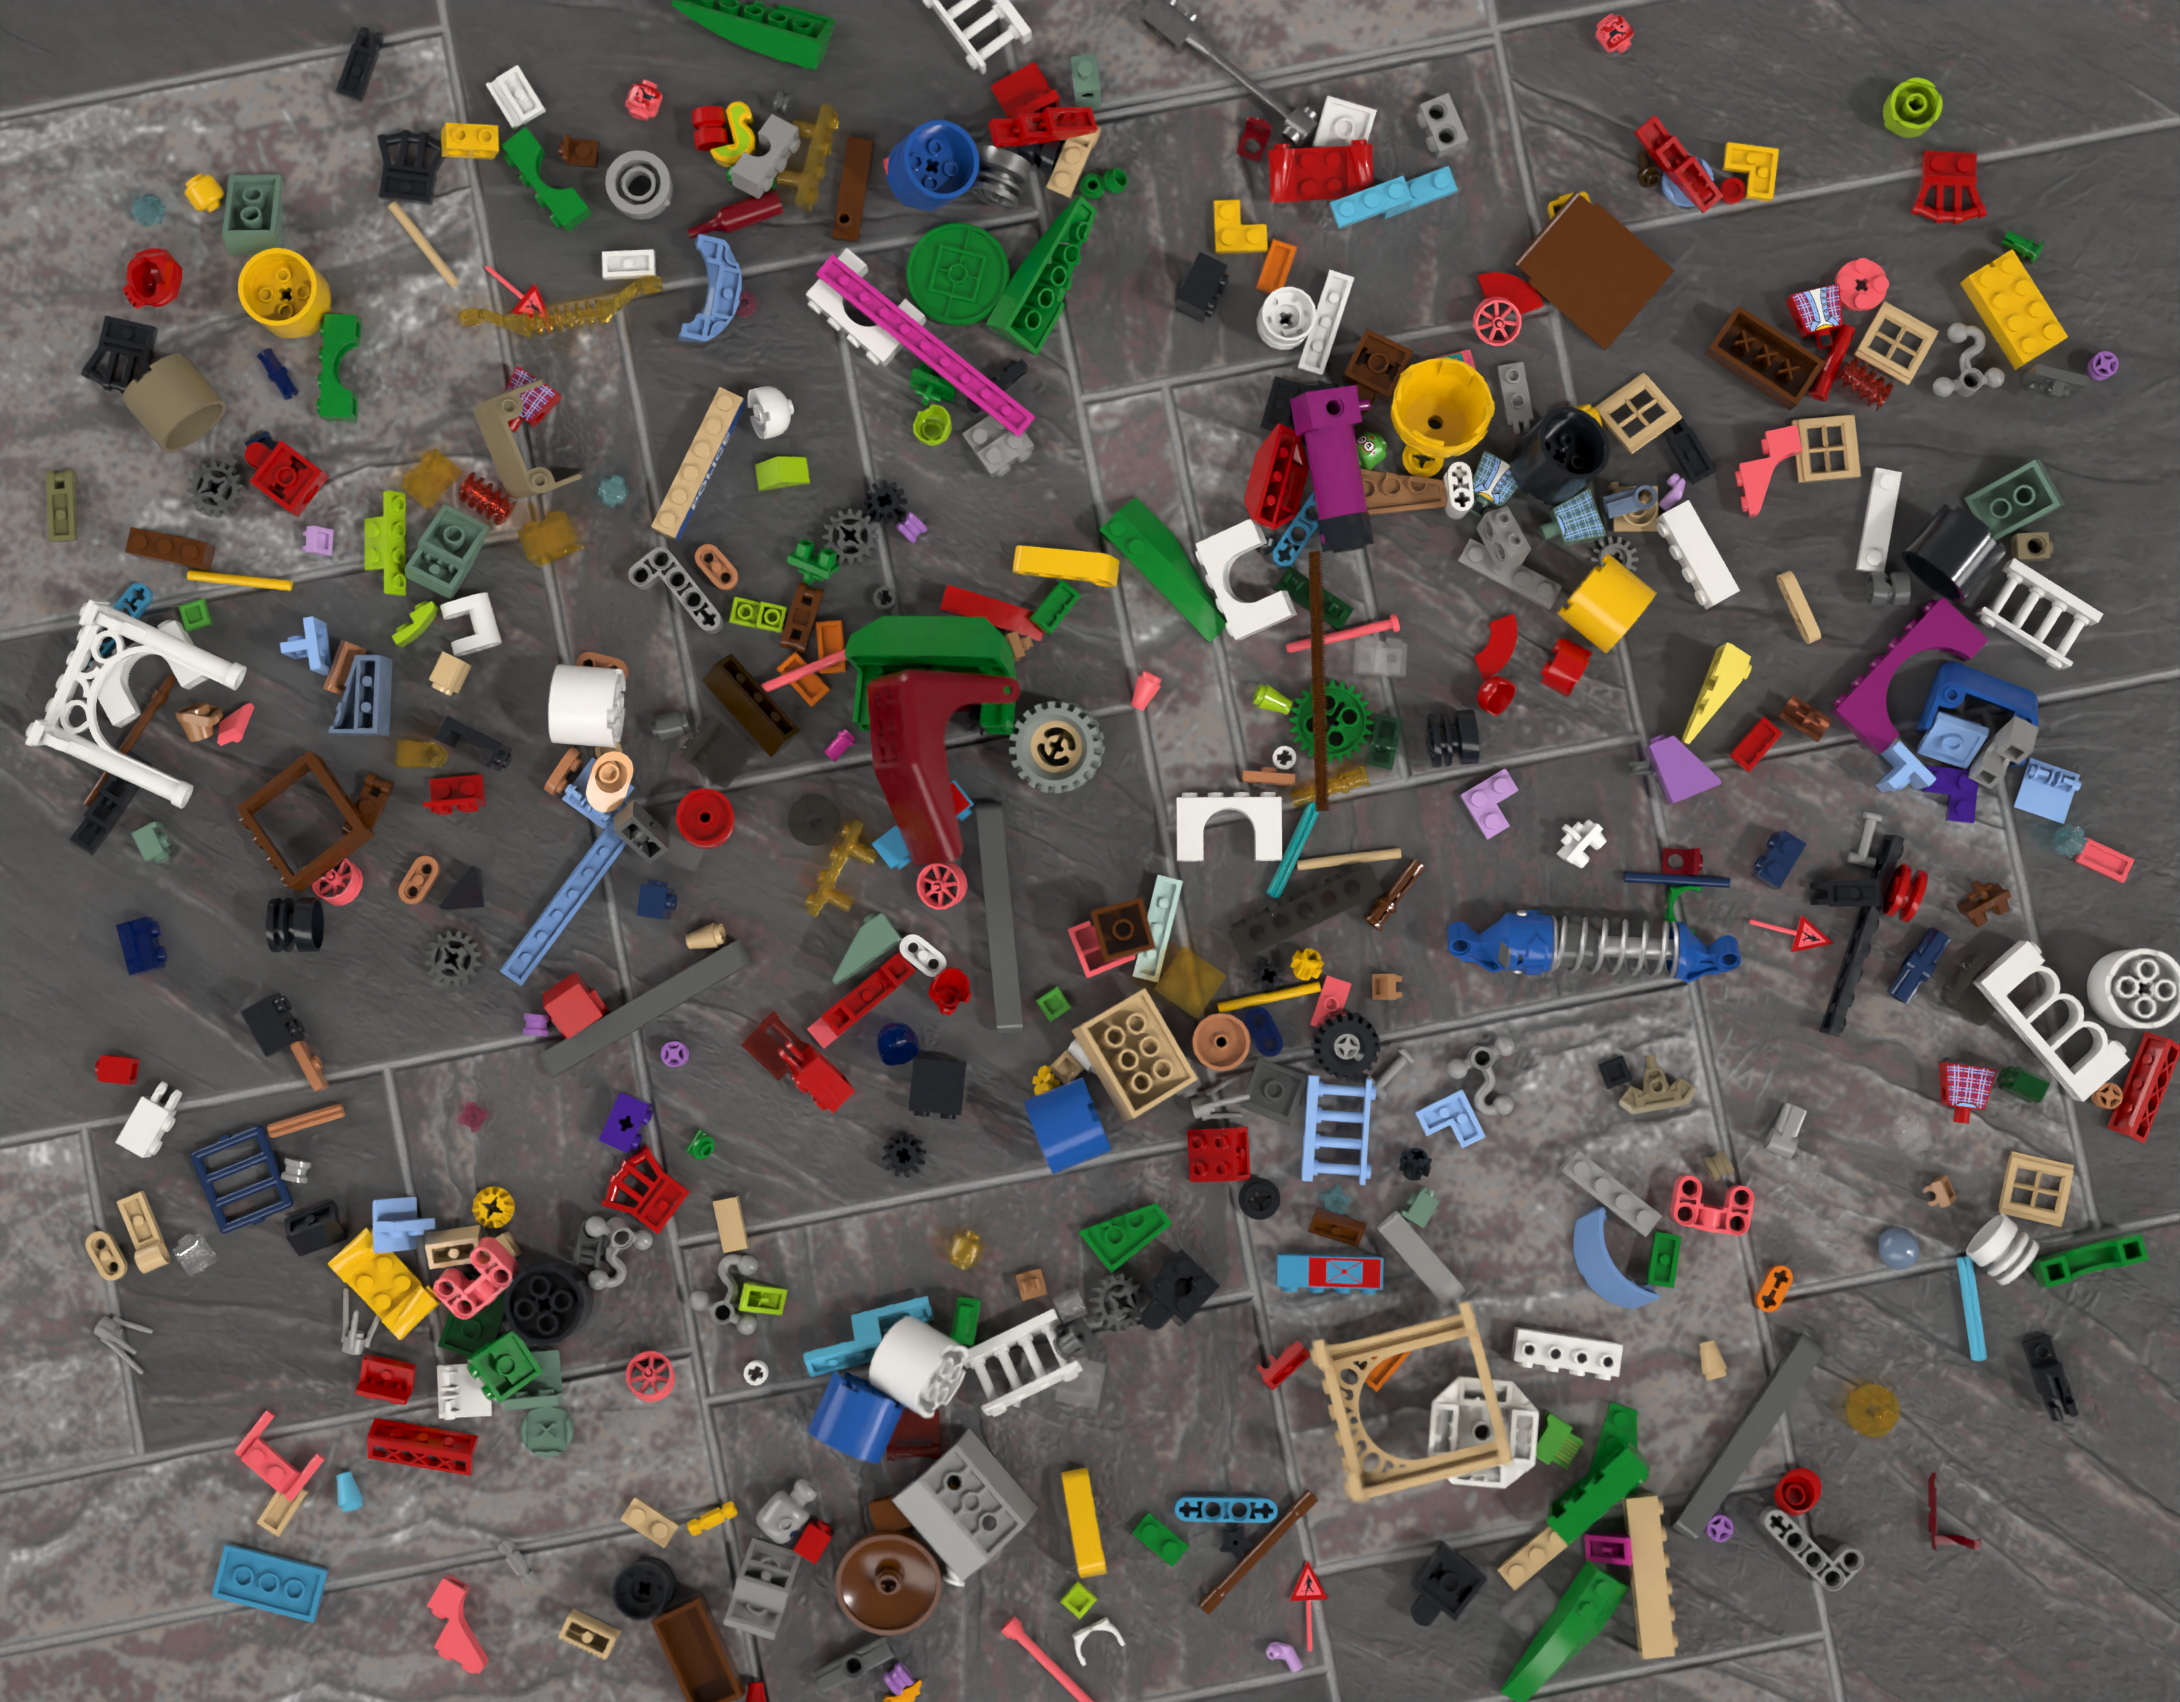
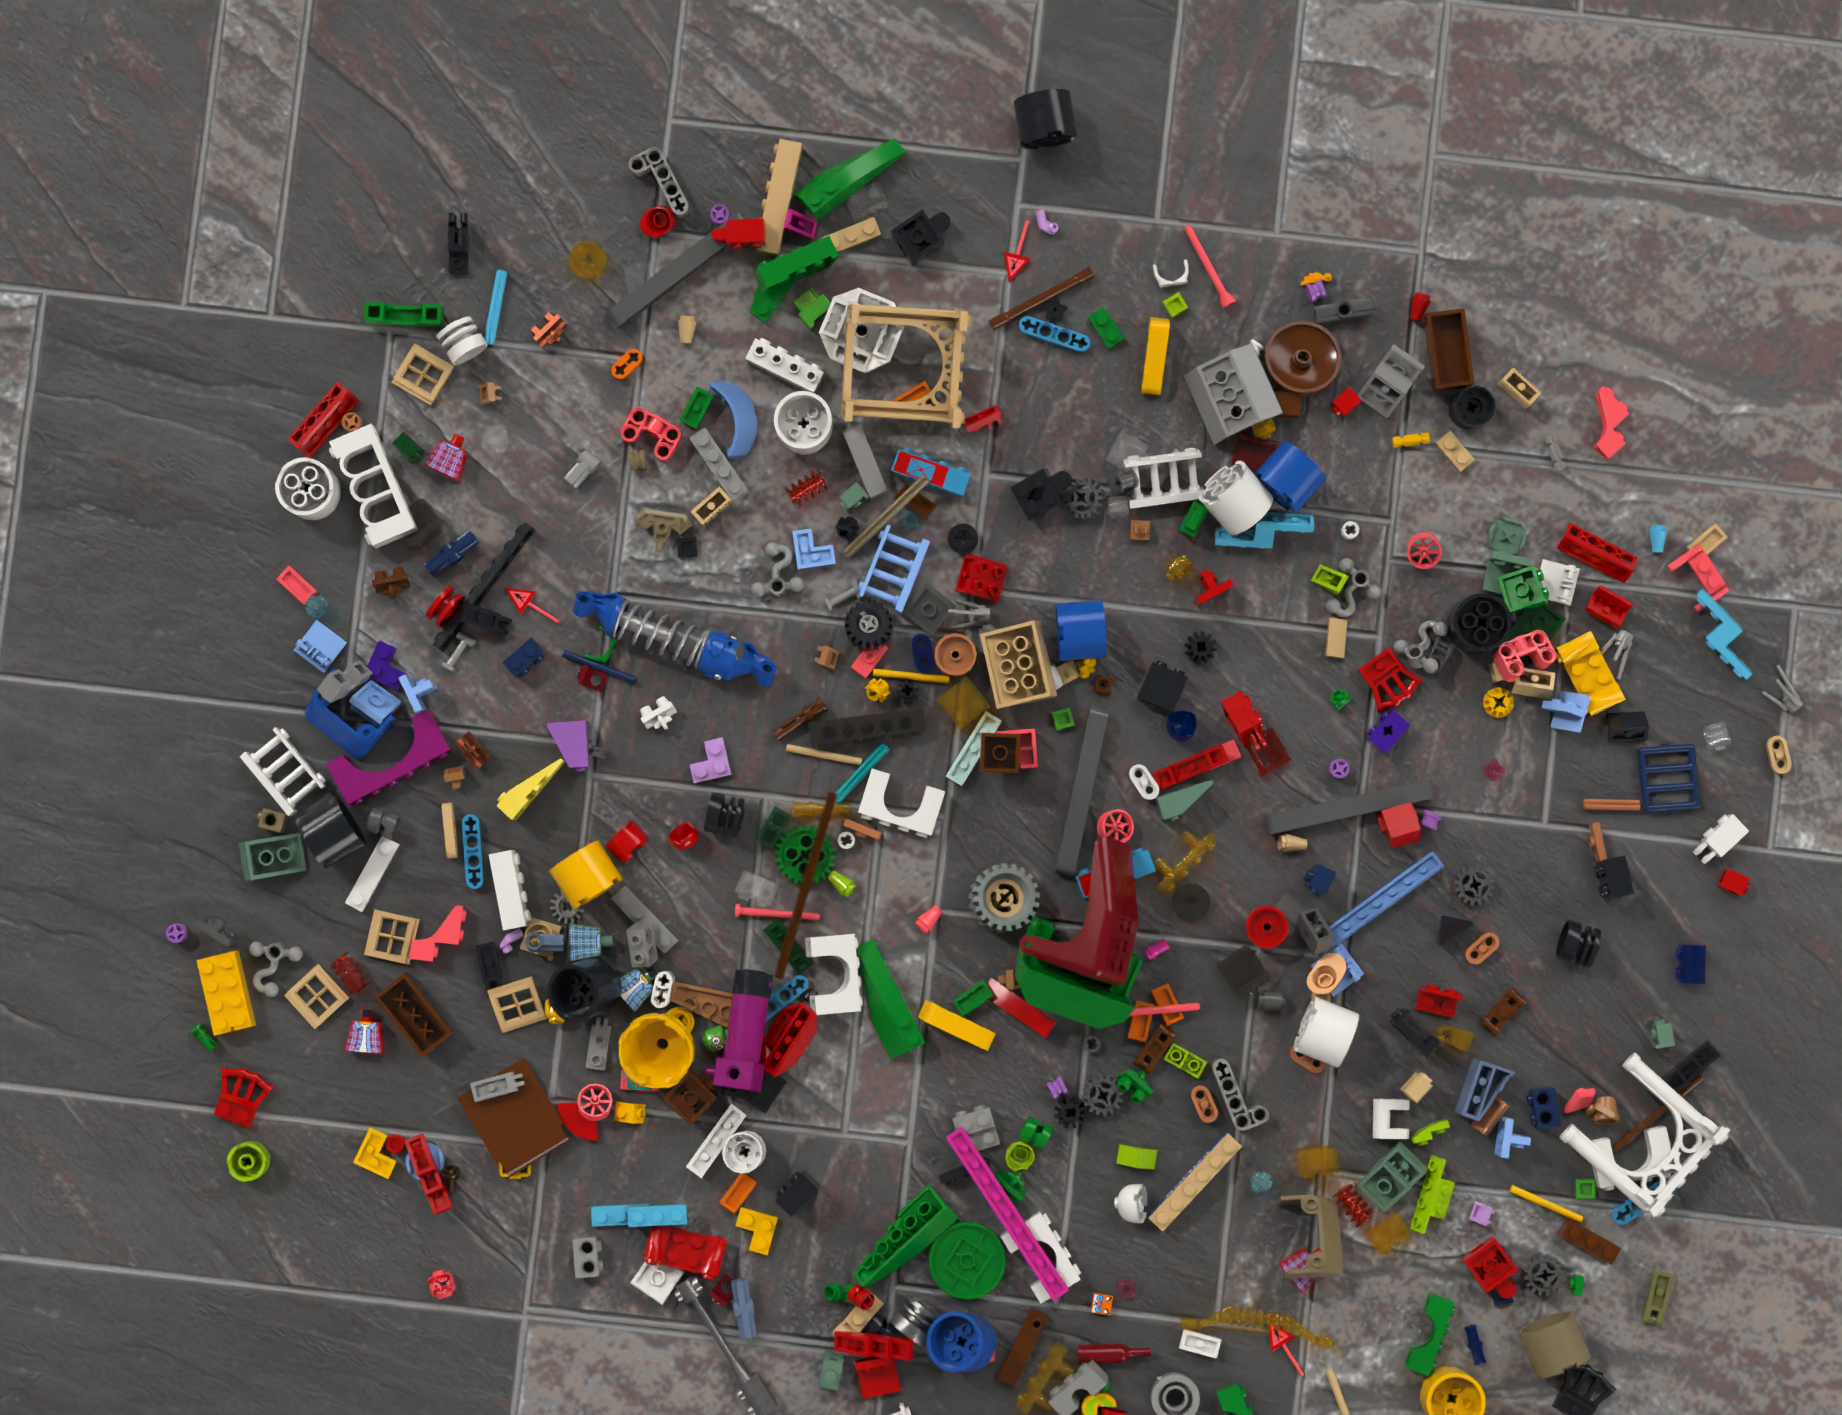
camera: 170 degrees left, 0 degrees up
(144, 1232) = (1747, 762): tan plate -> none
(169, 489) = (1576, 1284): none -> green plate
(224, 1391) = (1723, 634): none -> medium azure bracket
(270, 1582) = (1730, 493): dark azure plate -> none
(272, 704) = (1549, 1106): none -> dark blue brick
(296, 1170) = (1628, 771): light grey wheel -> none
(331, 857) = (1538, 982): reddish brown window -> none
(339, 882) = (1540, 966): coral wheel -> none
(570, 762) = (1362, 987): nougat plate -> none
(722, 292) = (1139, 1300): medium blue windscreen -> none
(751, 705) = (1210, 996): dark brown brick -> none
(769, 274) = (1101, 1303): none -> tile
(786, 1512) = (1358, 427): light grey piece -> none
(909, 1471) = (1264, 429): none -> yellow gear
(919, 1243) = (1212, 590): none -> red bracket
(930, 458) = (1035, 1133): none -> green wheel
(949, 989) = (1133, 752): red hair -> none
(1010, 1070) = (1102, 680): none -> reddish brown plate
(1078, 183) = (862, 1298): none -> red wheel
(1125, 1235) = (1063, 543): green wing -> none
(1222, 124) = (743, 1308): none -> sand blue piece
(1369, 1195) = (886, 516): none -> dark tan axle
(1447, 323) = (629, 1112): none -> yellow bracket
(1485, 1199) = (806, 488): none -> clear red piece
(1499, 647) = (669, 870): red tile -> none
(1538, 1293) = (799, 407): none -> white brick
(1602, 1134) = (711, 506): none -> tan brick
(1630, 299) = (496, 1086): none -> light grey hinge
(1683, 1512) = (742, 233): none -> red hinge
(1754, 592) = (476, 851): none -> dark azure beam
(1755, 744) = (512, 743): red plate -> none
(1816, 679) = (455, 775): none -> medium nougat tile
(1832, 363) = (369, 993): red pin -> none
(1875, 283) = (316, 1044): coral plate -> none
(1889, 1299) = (550, 331): none -> copper hips
(1898, 1248) = (532, 364): sand blue hair -> none
(1944, 1539) = (567, 157): dark red piece -> none

